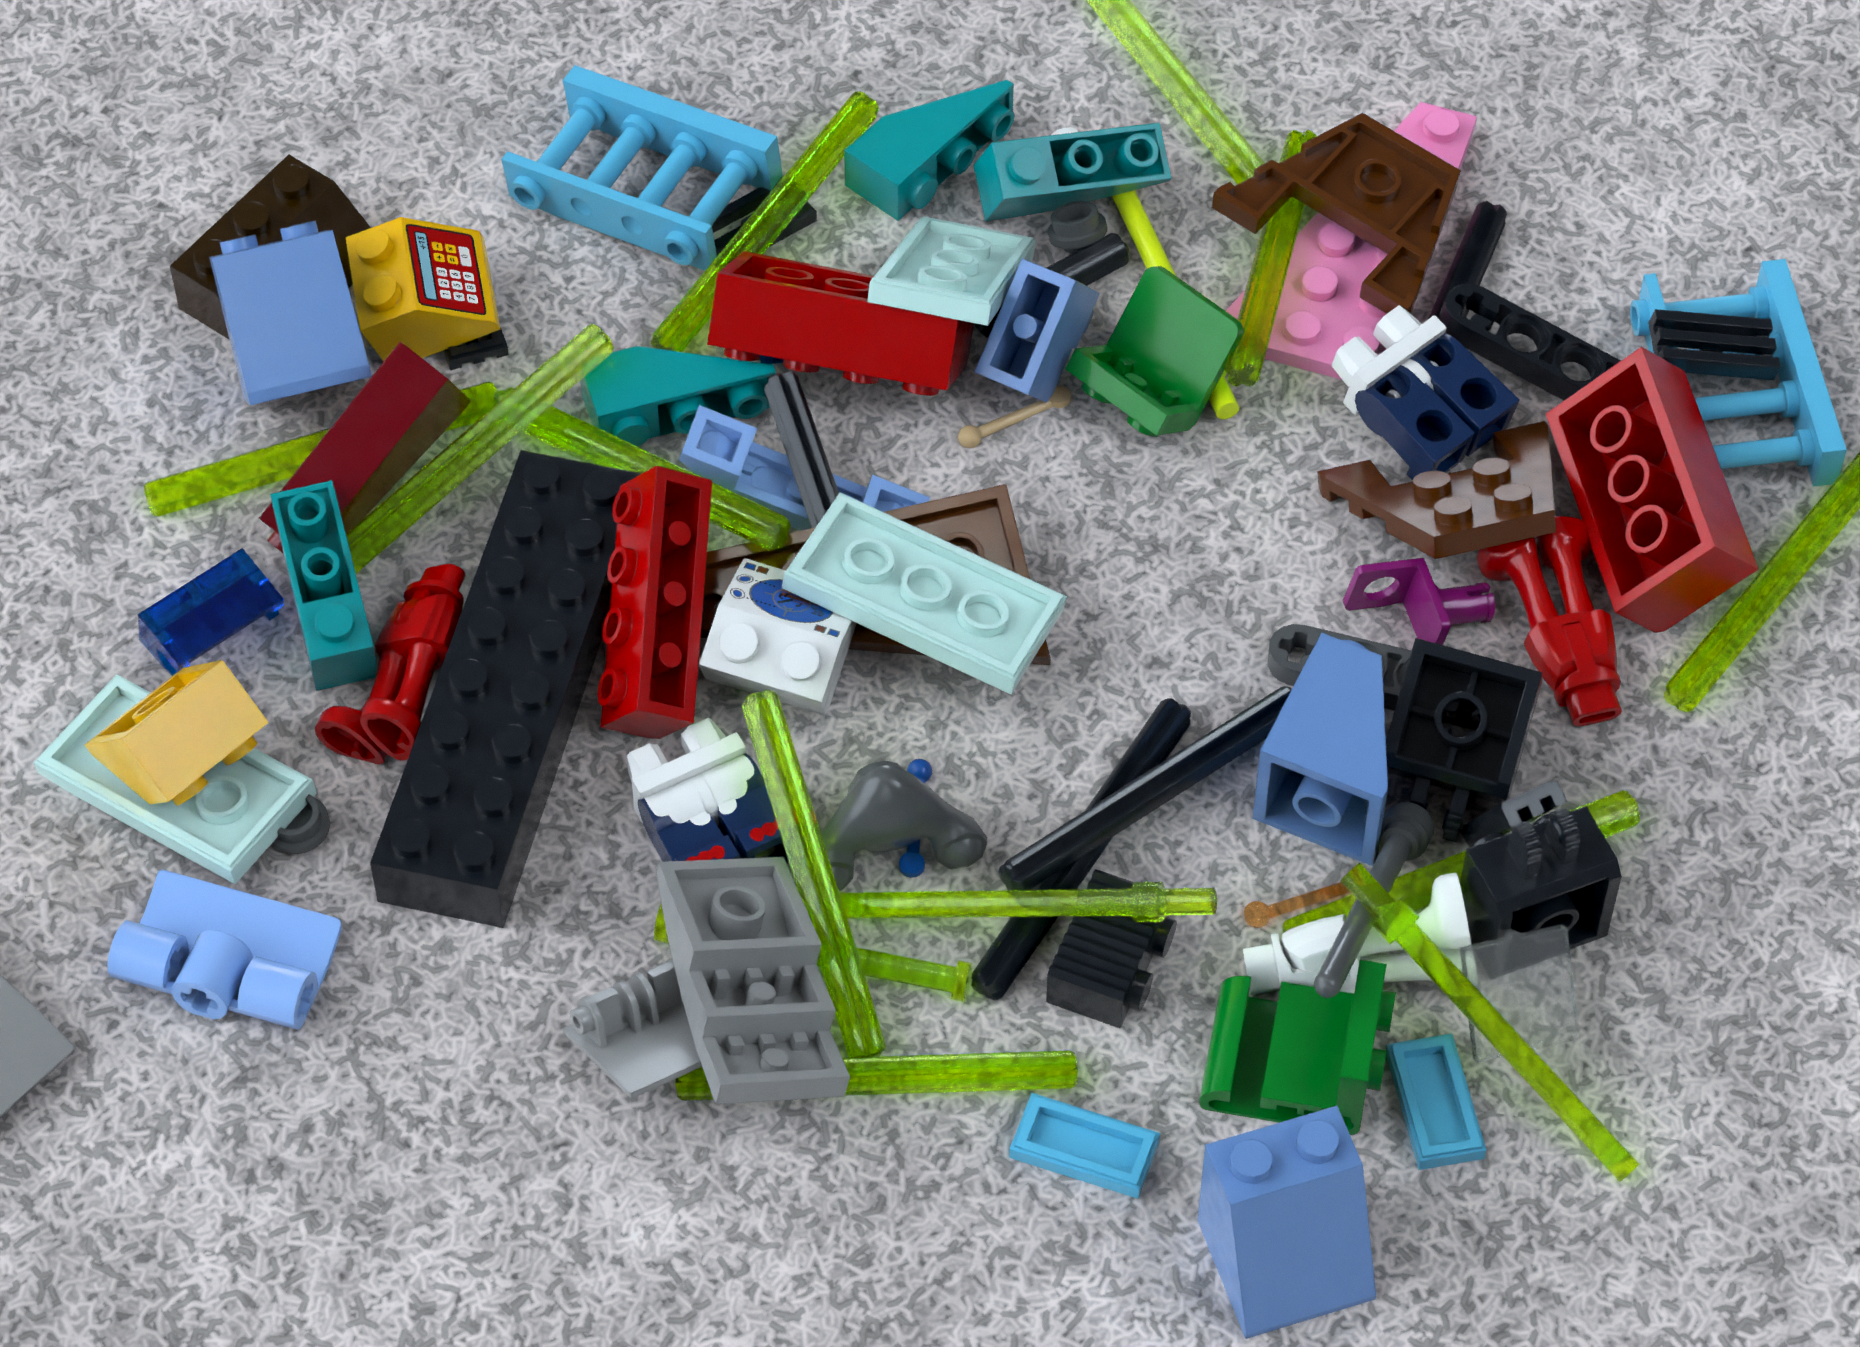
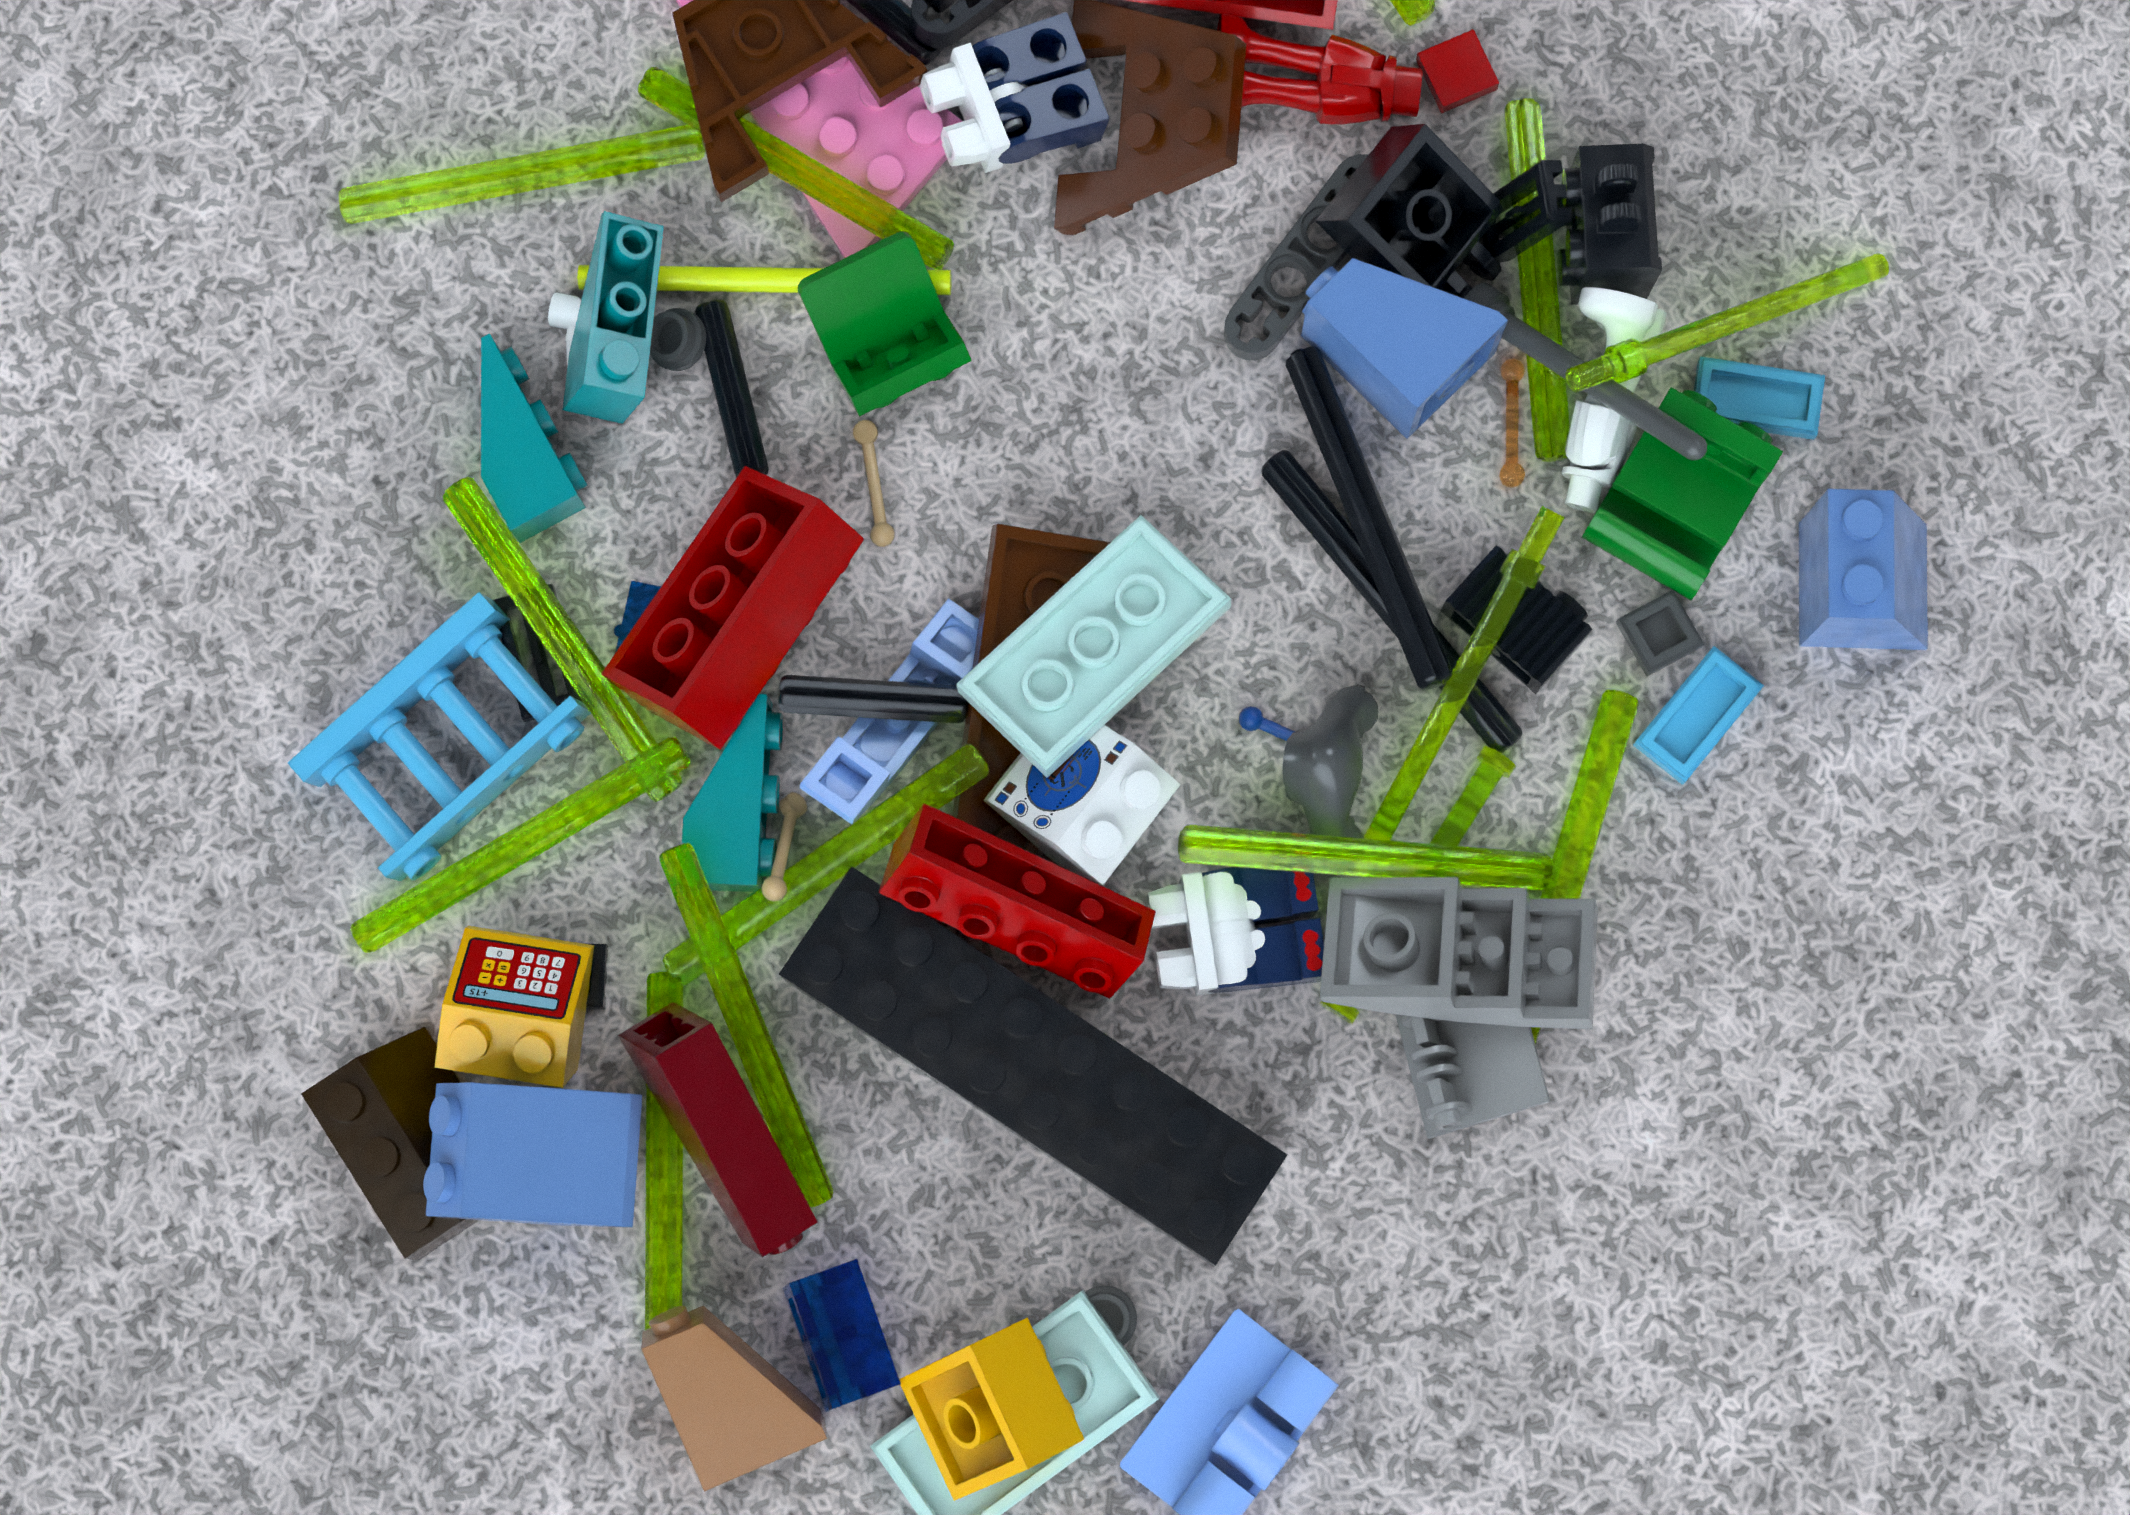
camera: 65 degrees left, 25 degrees up
(125, 535) = (725, 1397): none -> medium nougat slope
(324, 585) = (862, 1214): teal slope -> none
(409, 652) = (947, 1136): red piece -> none
(572, 252) = (520, 844): none -> clear neon green axle
(599, 426) = (792, 808): none -> tan hinge
(951, 270) = (720, 480): light aqua tile -> none
(1036, 330) = (816, 426): medium blue hinge -> none
(1154, 1086) = (1659, 633): none -> dark grey tile
(1428, 607) = (1252, 187): magenta bracket -> none
(1528, 984) = (1695, 275): clear piece -> none
(1637, 745) = (1457, 71): none -> red tile

